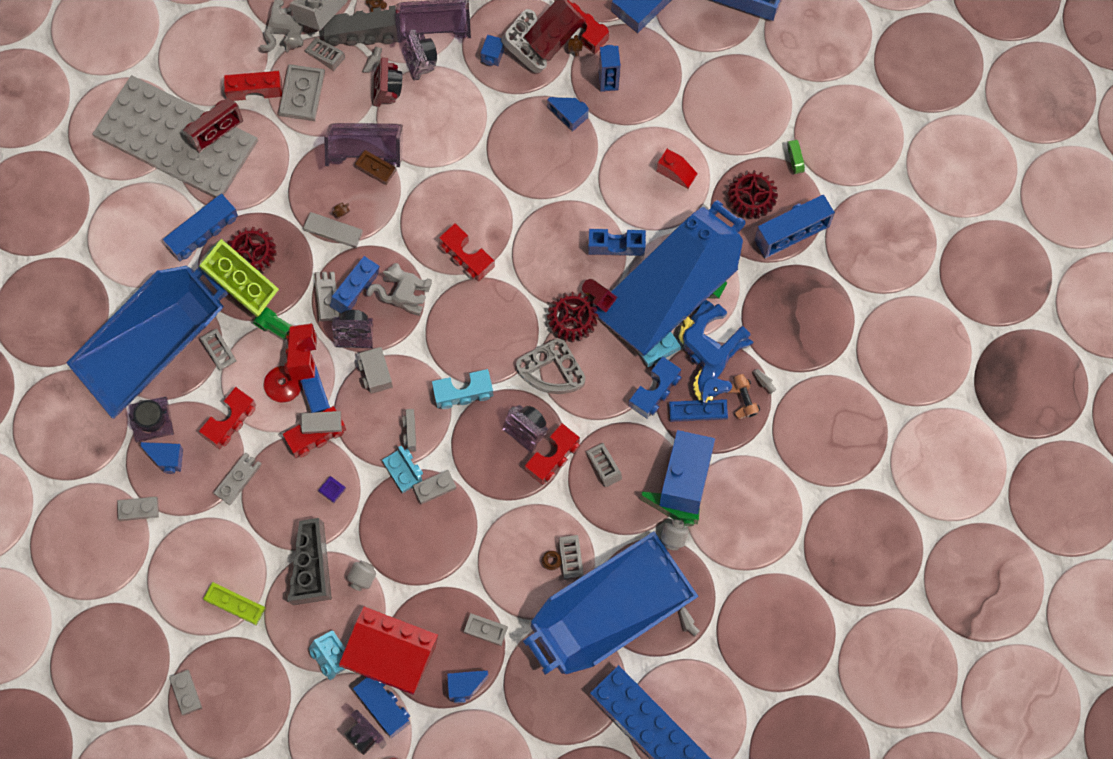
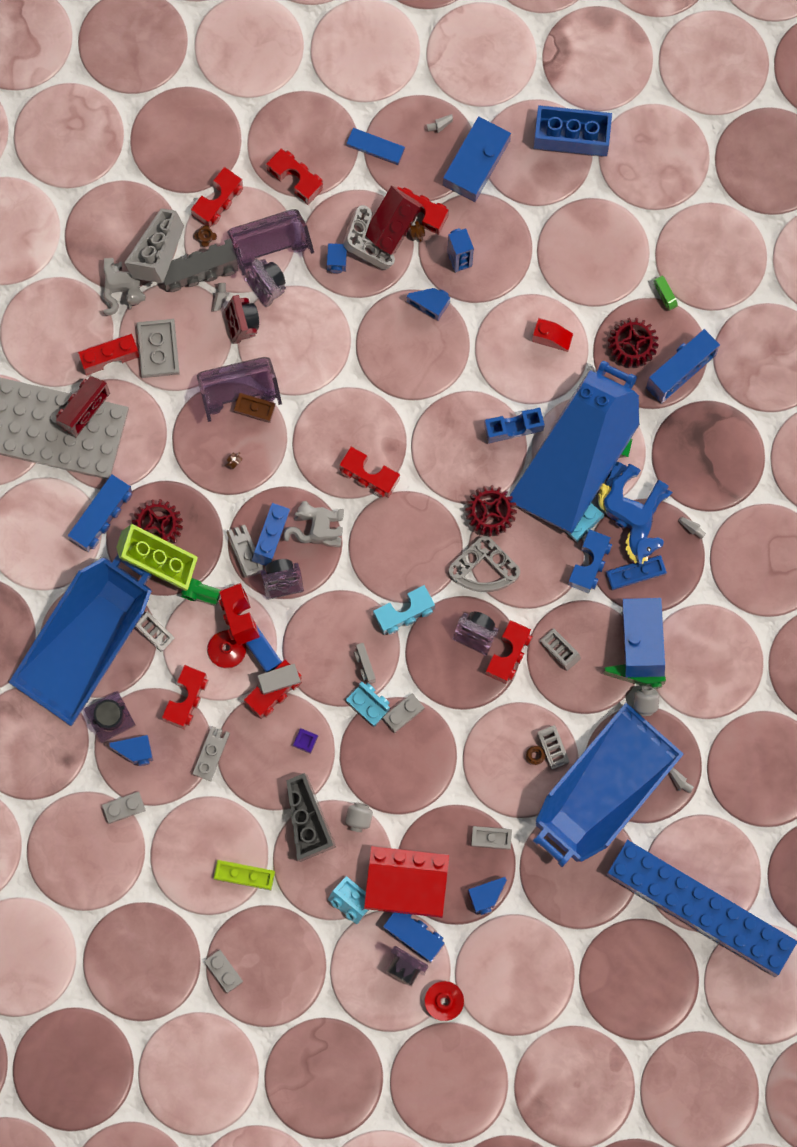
camera: 15 degrees left, 5 degrees up
(332, 64) = (171, 295): light grey slope -> none
(333, 230) = (231, 482): light grey tile -> none
(375, 369) = (314, 613): light grey brick -> none
(601, 296) = (516, 484): dark red leg -> none
(742, 386) = (672, 538): nougat piece -> none

